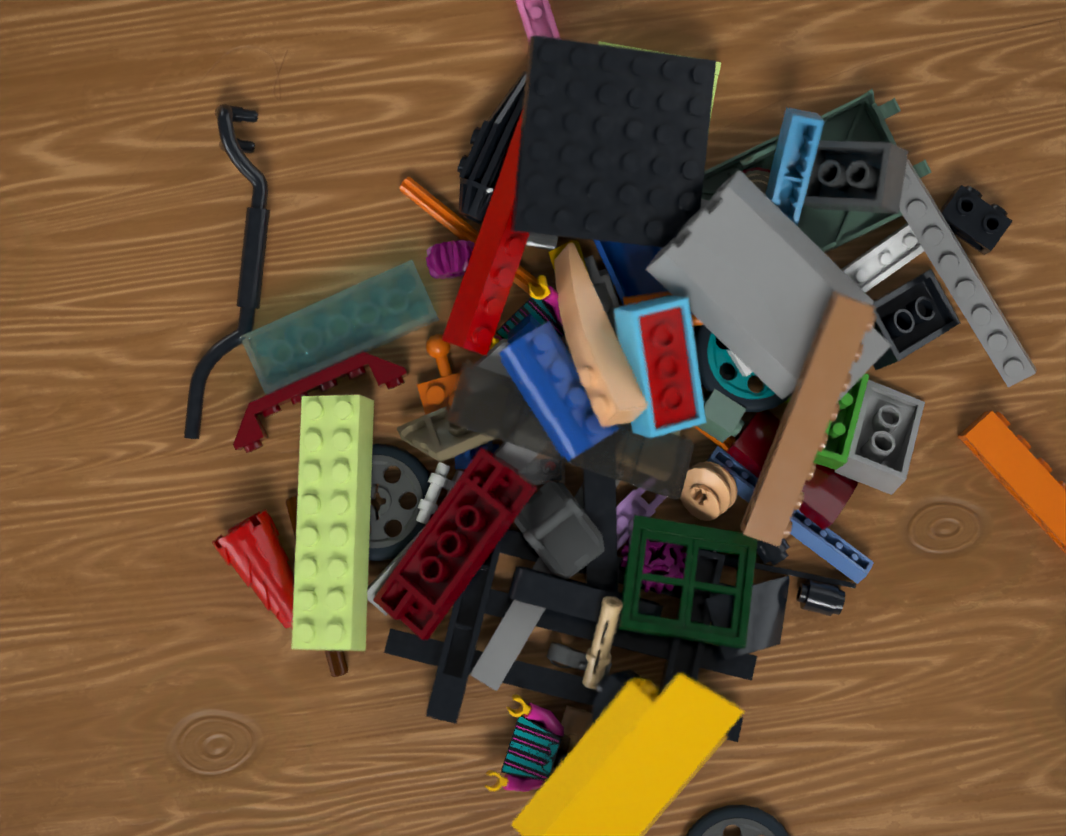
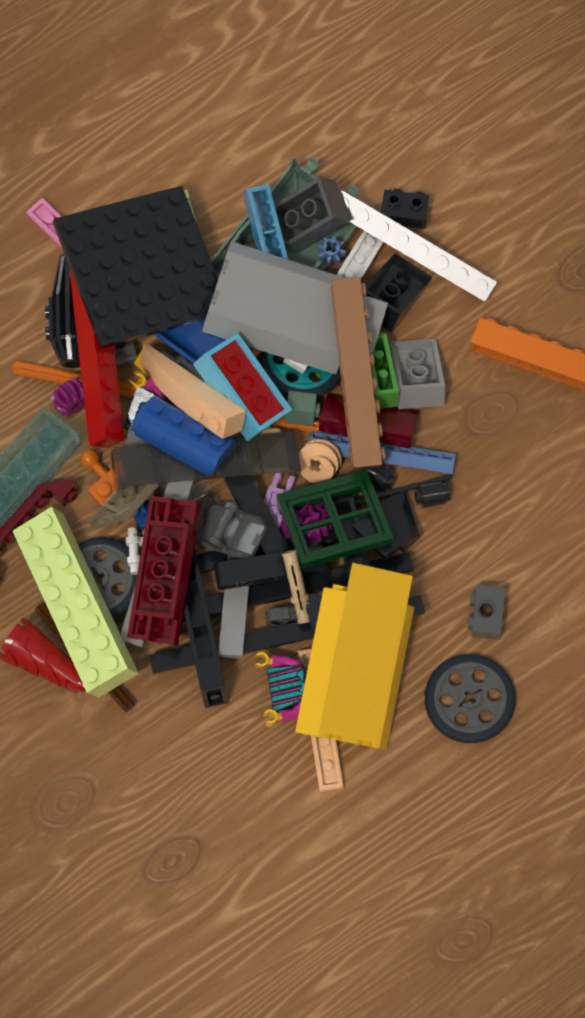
camera: 25 degrees left, 15 degrees down
(810, 793) = (490, 598): none -> dark grey brick
(862, 224) = (334, 245): none -> medium blue gear

